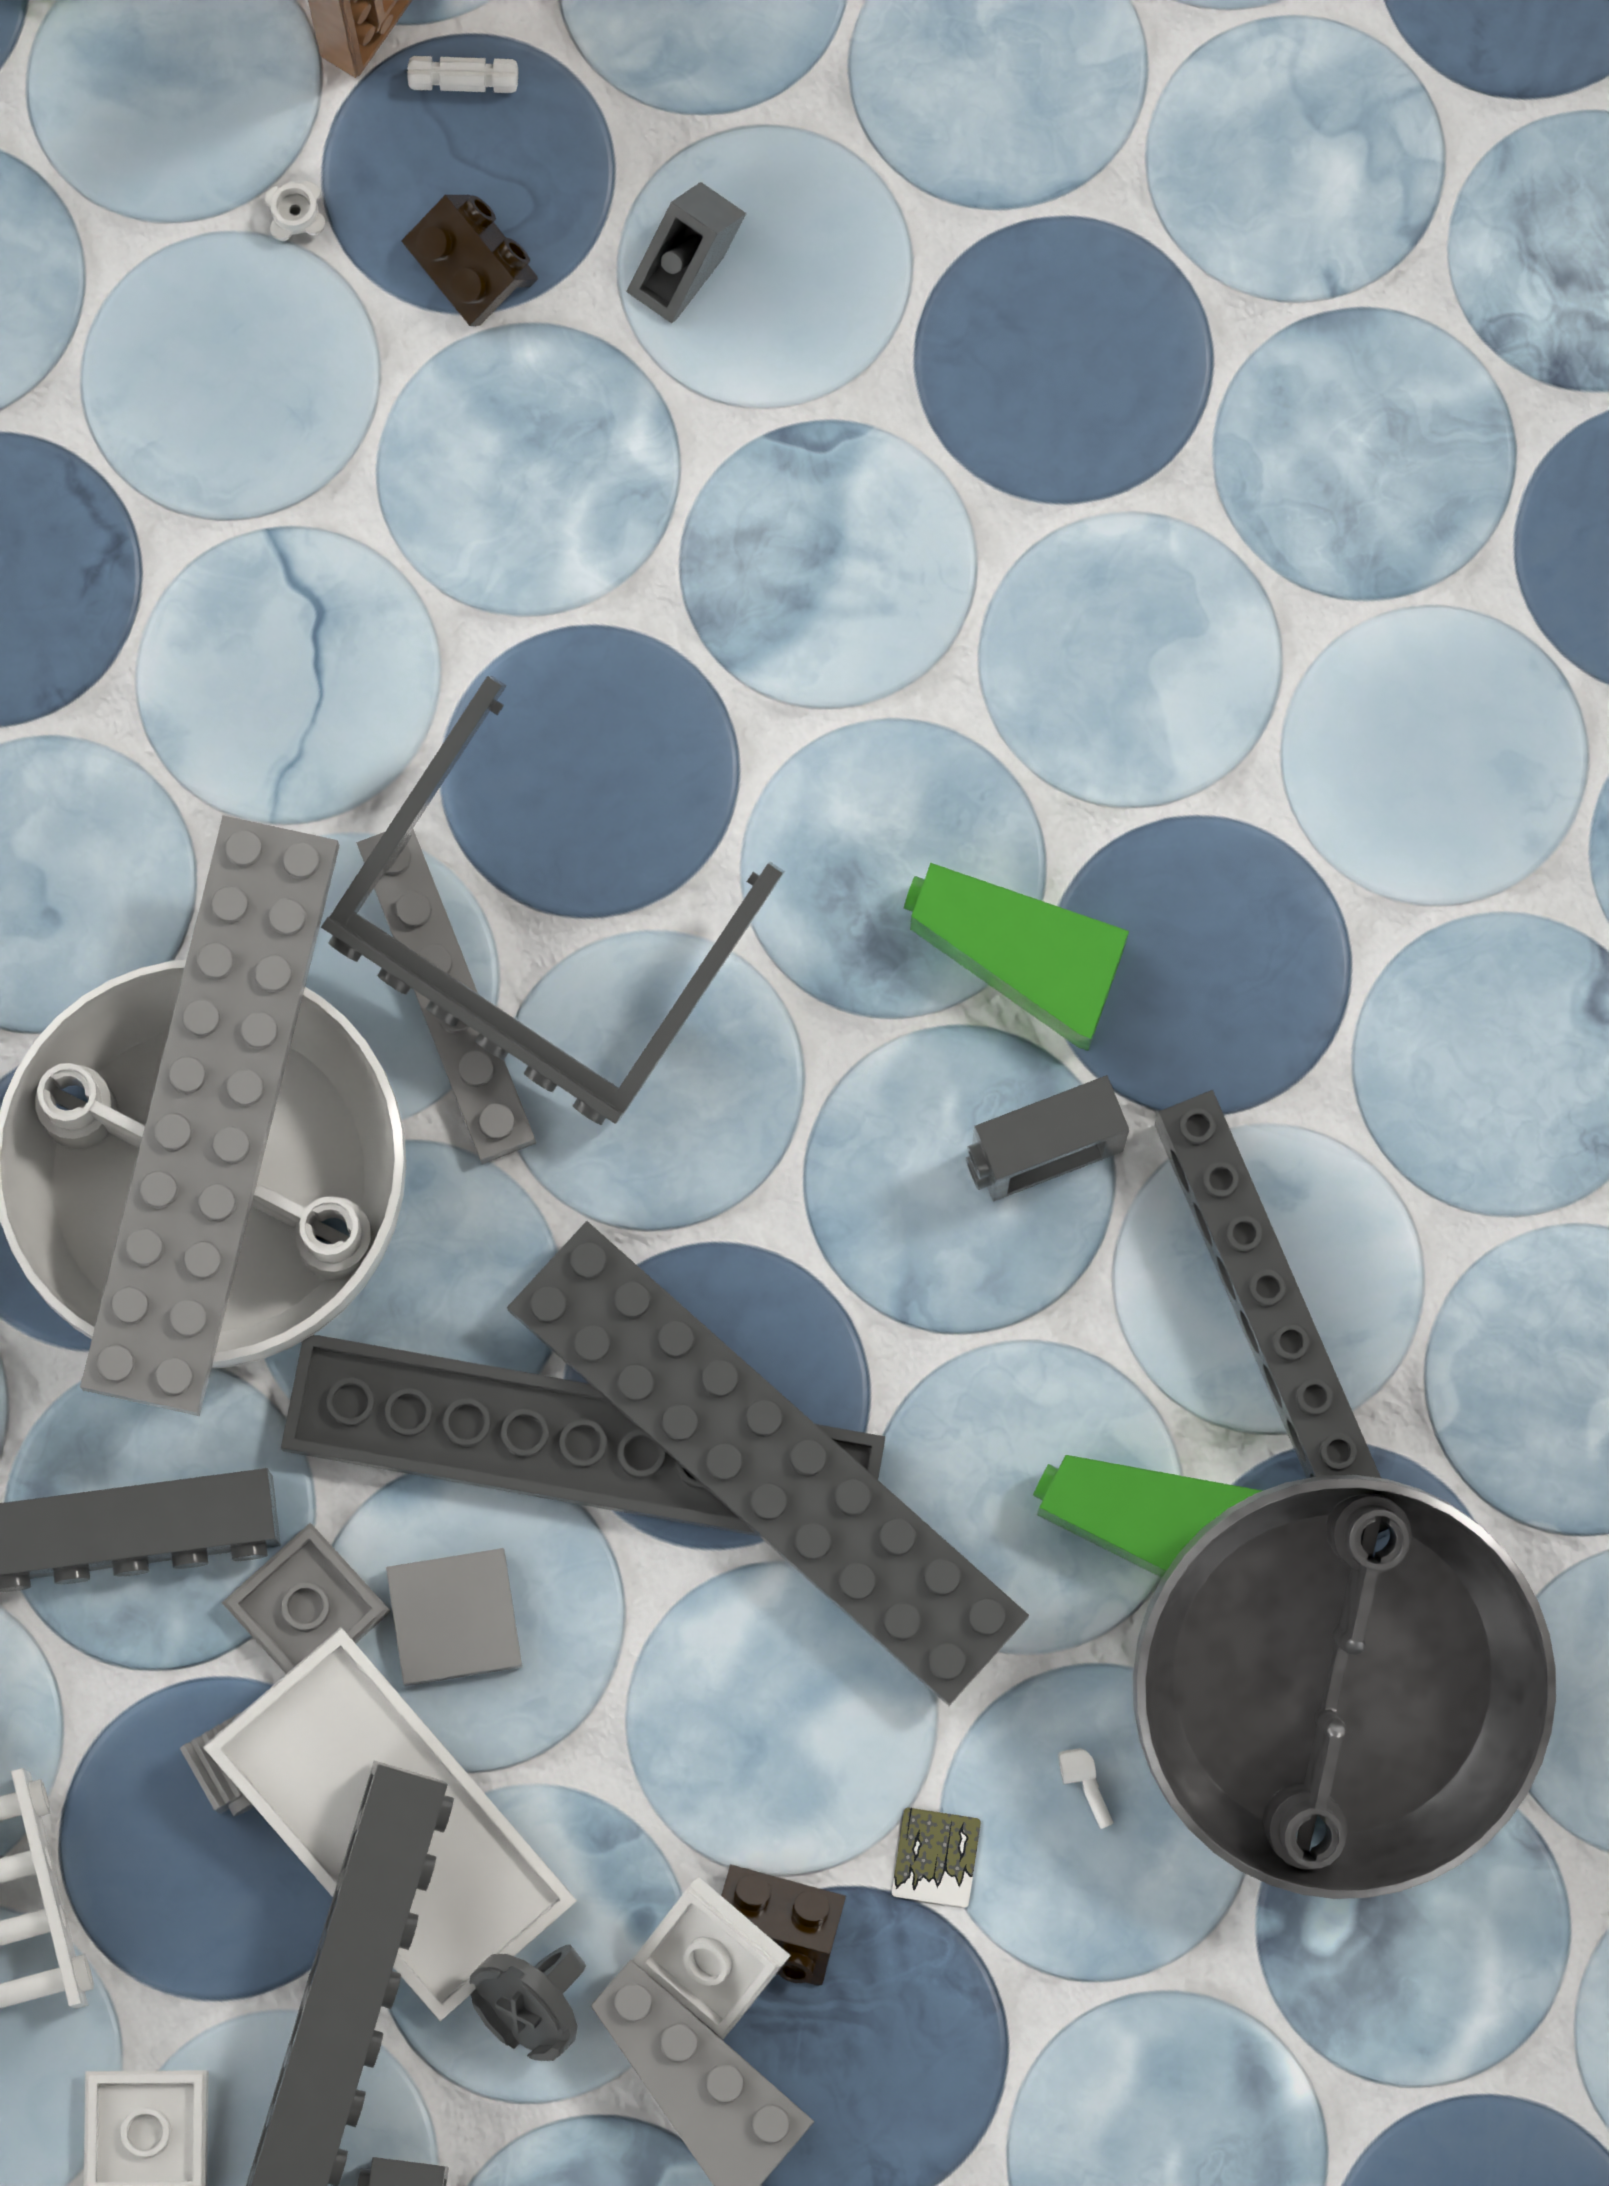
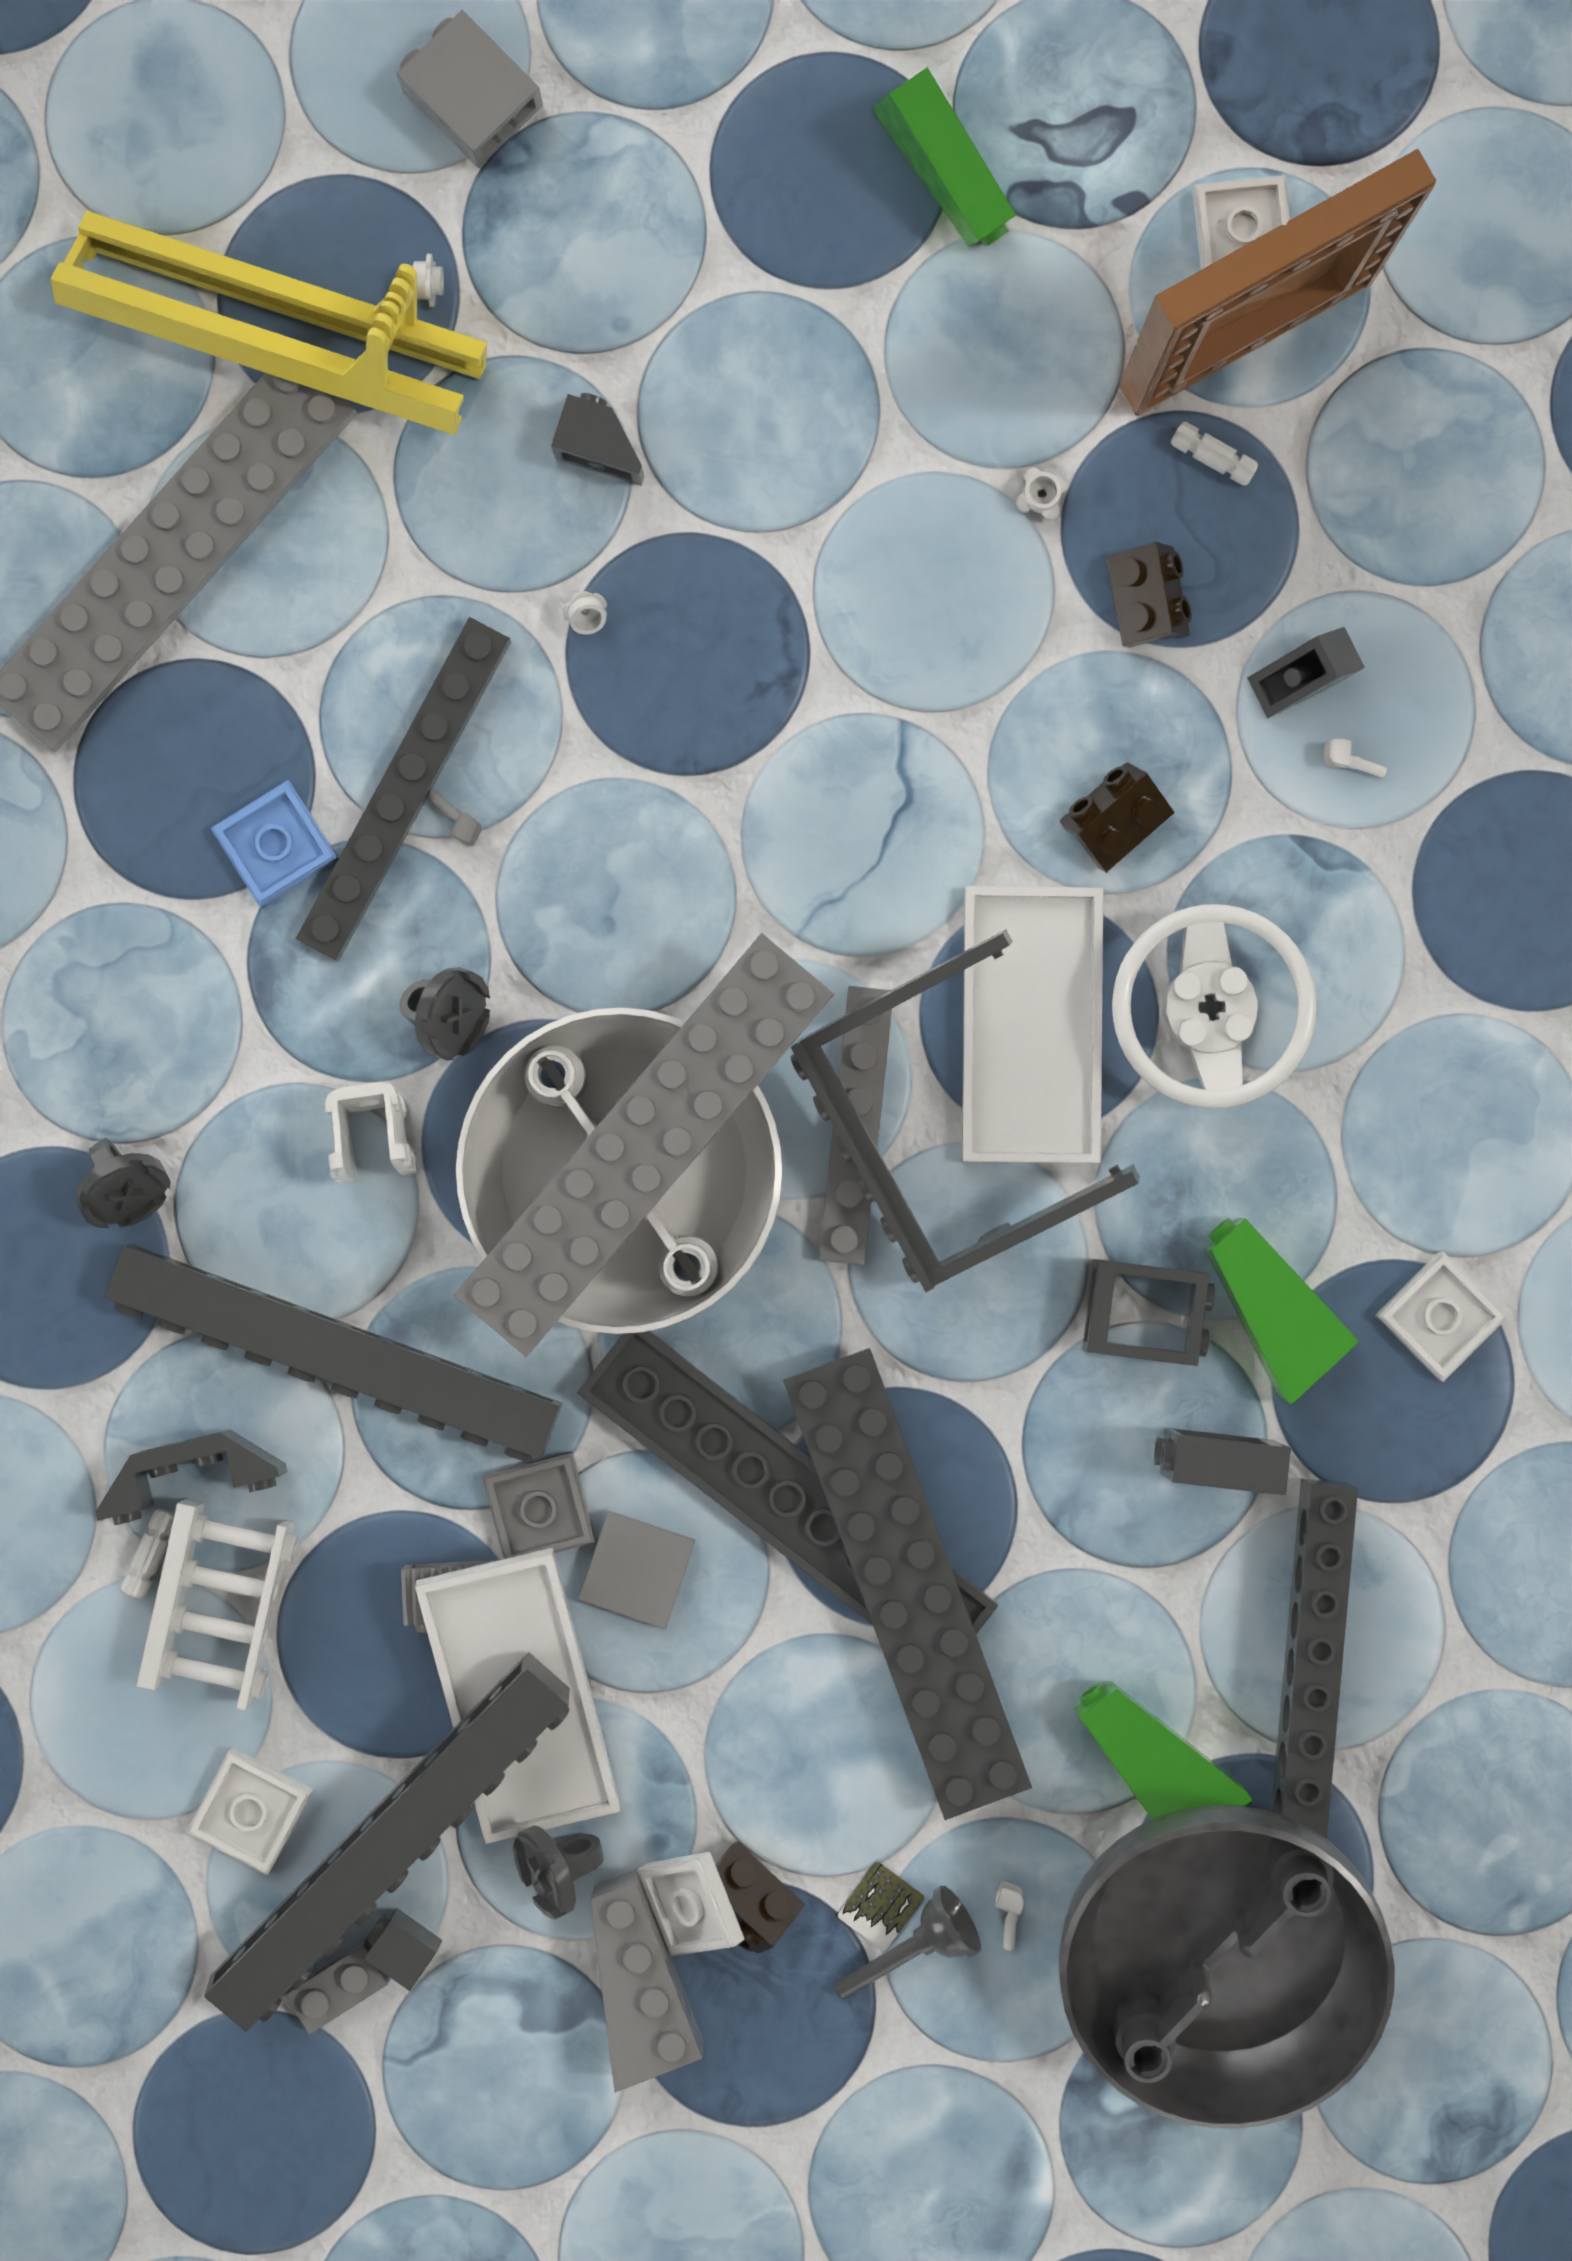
camera: 30 degrees right, 10 degrees up
(560, 508) = (1117, 815): none -> dark brown bracket
(589, 785) = (1033, 1026): none -> white tile
(754, 625) = (1209, 972): none -> white piece
(772, 324) = (1338, 755): none -> white hand
(845, 1090) = (1100, 1309): none -> dark grey window
(1015, 1835) = (943, 1929): none -> dark grey piece
(1211, 865) = (1441, 1316): none -> white tile

